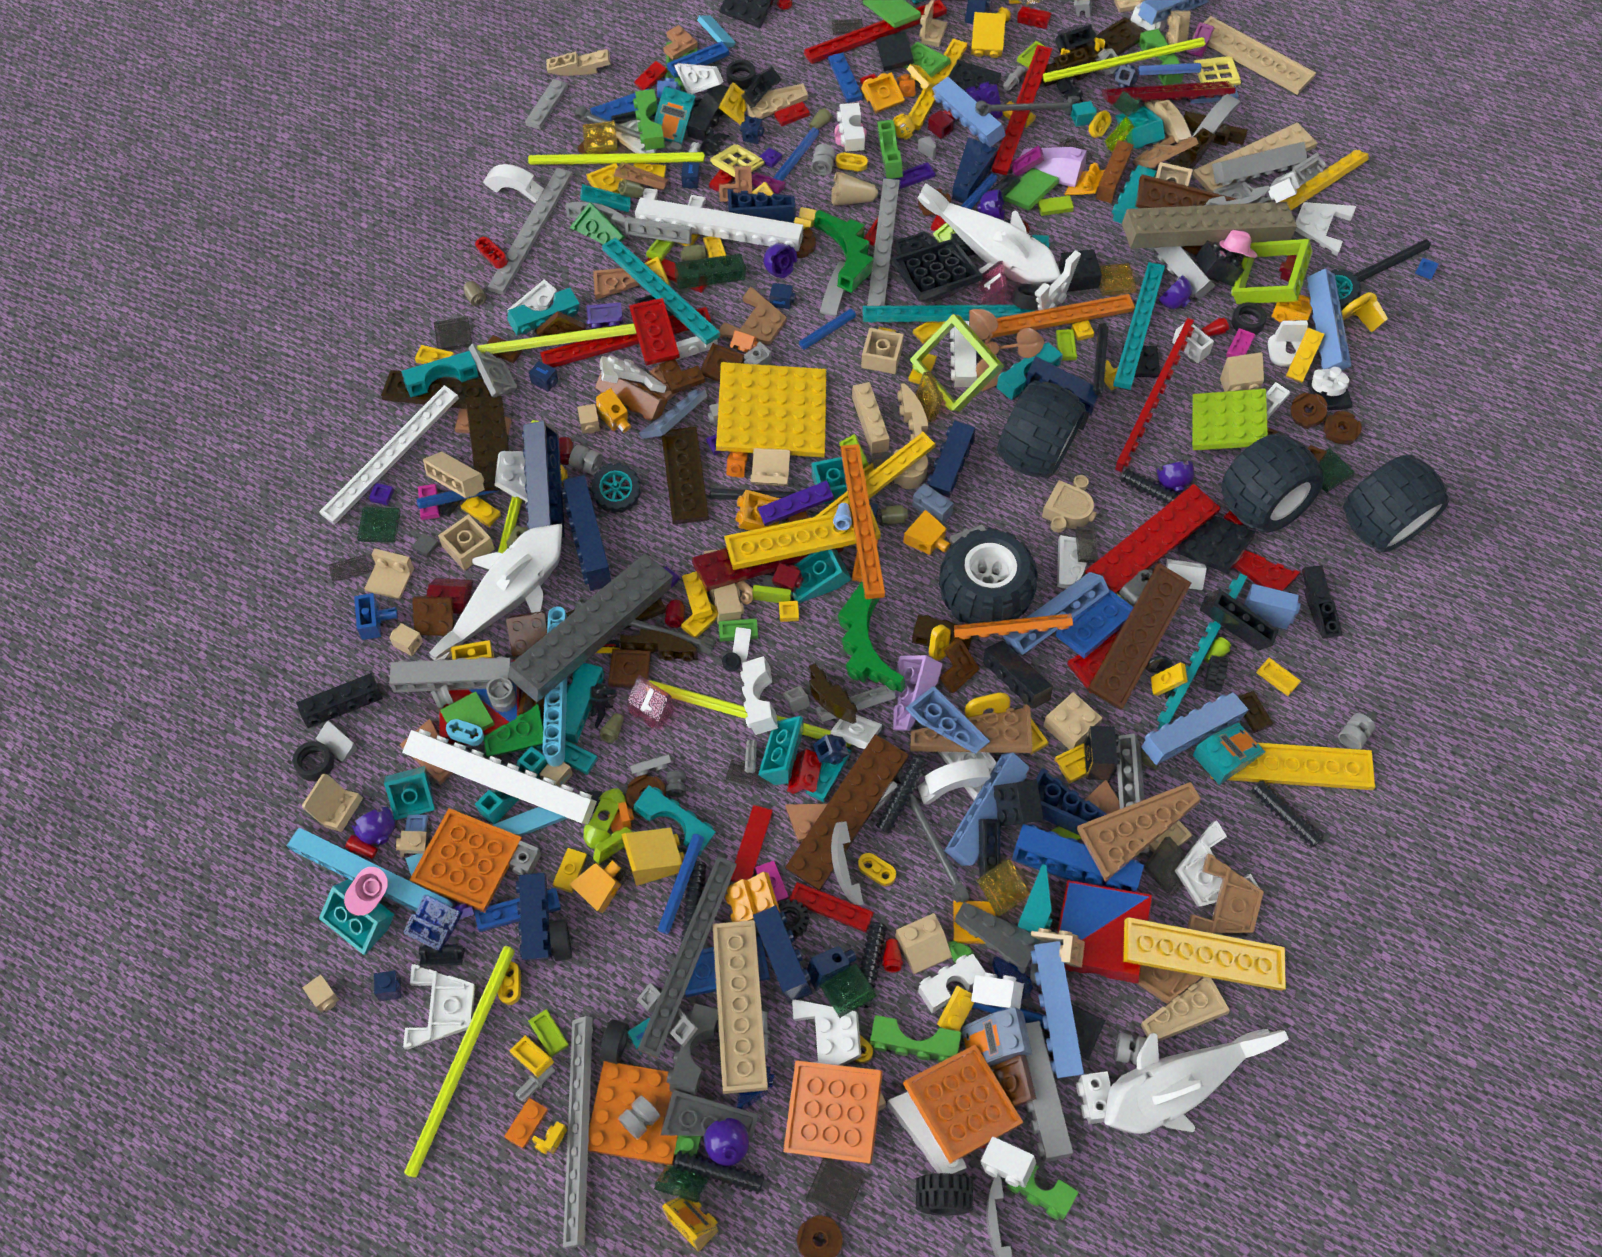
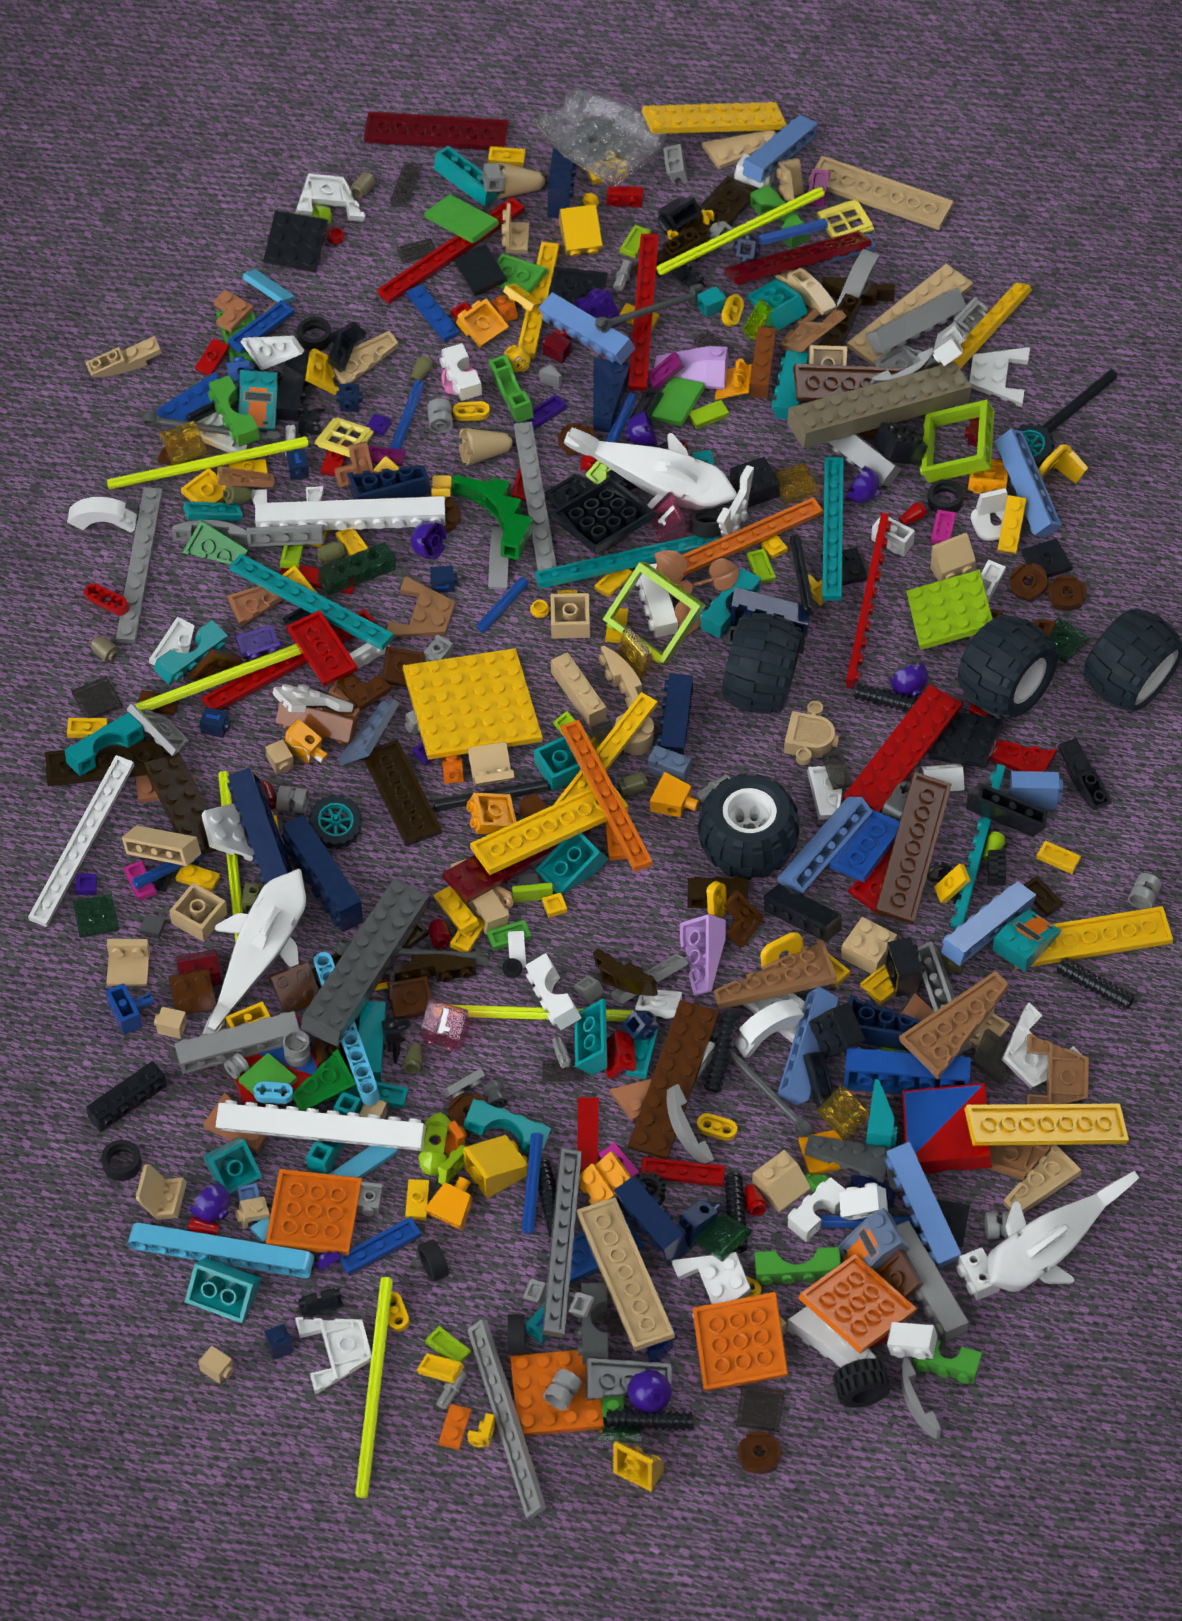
camera: 15 degrees left, 5 degrees down
(336, 742) = (141, 1136): slope -> none
(349, 568) = (81, 967): clear smoke tile -> none
(366, 891) = (231, 1258): bright pink piece -> none
(432, 922) = (304, 1273): clear blue slope -> none
(534, 917) = (401, 1246): dark blue wedge -> none
(546, 104) = (103, 414): light grey plate -> none
(743, 341) = (419, 638): orange brick -> none
(788, 577) = (545, 871): dark red brick -> none
(791, 114) = (386, 368): red plate -> none
(796, 503) = (530, 795): dark purple plate -> none
(842, 517) = (586, 797): light blue cone -> none
(858, 339) = (539, 609): none -> yellow plate
(864, 661) = (634, 919): green arch -> none
(943, 717) = (739, 967): medium blue wedge -> none
(956, 1010) = (829, 1229): yellow plate -> none
(1021, 625) = (779, 868): orange plate -> none
(1072, 947) = (920, 1143): tan bracket -> none
(1127, 104) = (757, 283): clear green bracket -> none
(1238, 242) = (915, 419): bright pink piece -> none
(1330, 381) = (1036, 545): white plate -> none
(1426, 268) = (1118, 402): blue plate -> none

